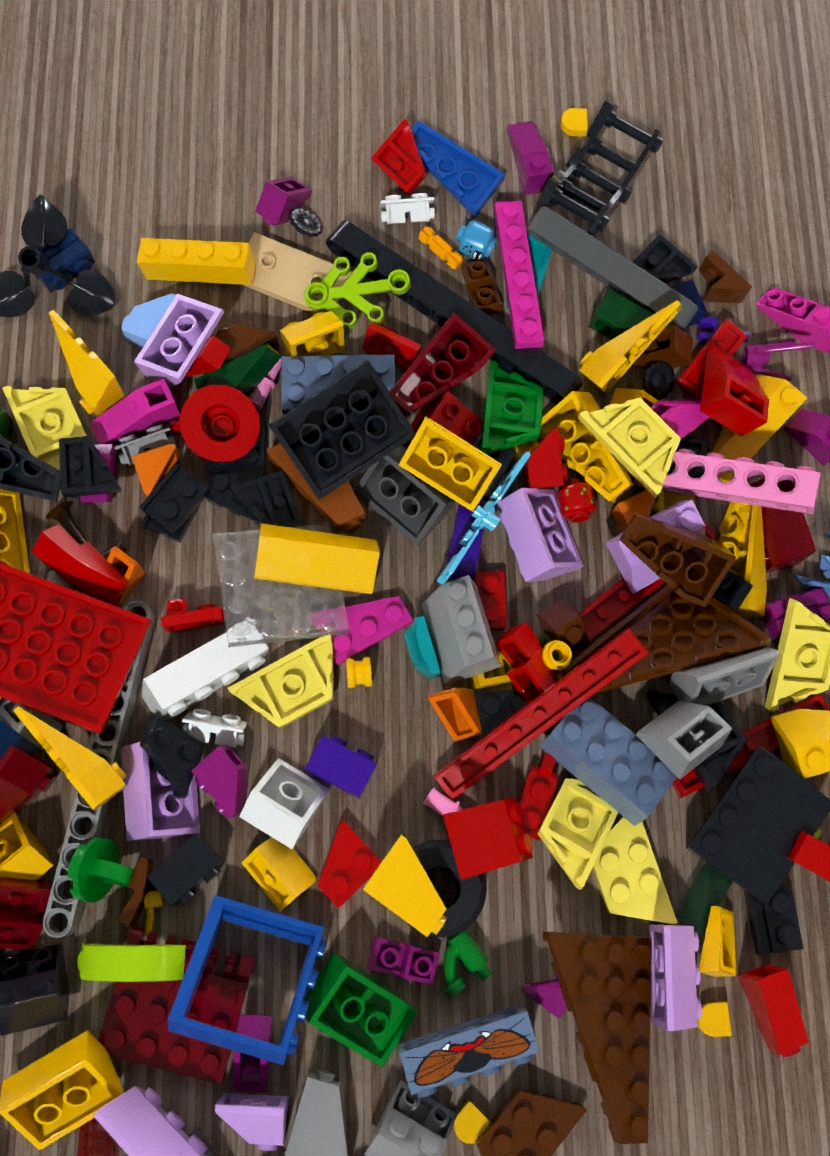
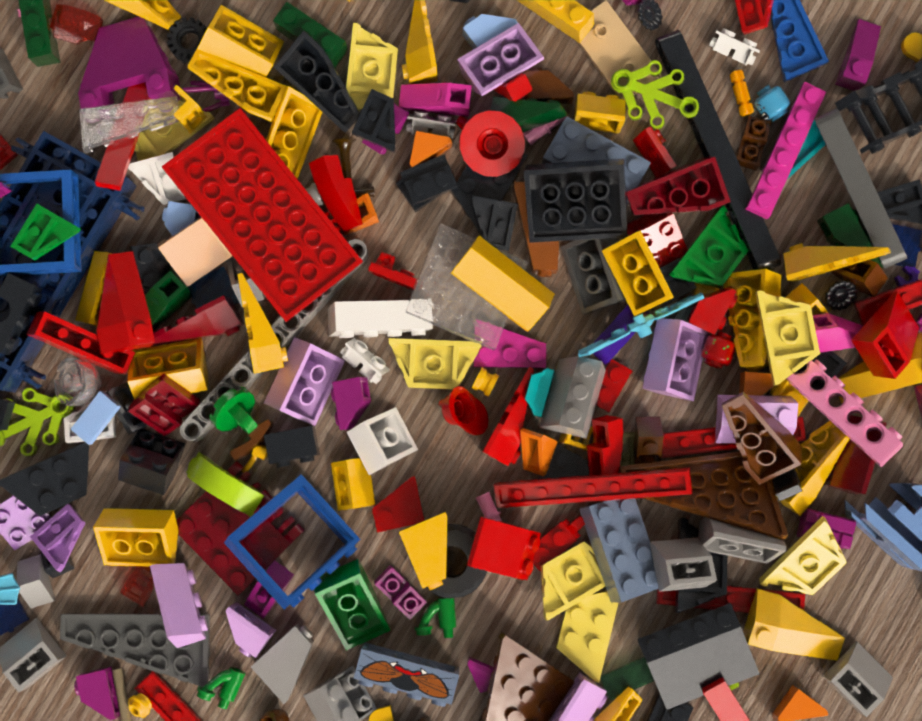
camera: 40 degrees right, 10 degrees up
(172, 752) = (326, 362): black wing -> none
(341, 766) = (434, 439): dark purple brick -> none
(355, 715) = (464, 410): none -> red piece
(416, 715) = (507, 435): none -> red wedge
(564, 655) = (636, 456): yellow plate -> none

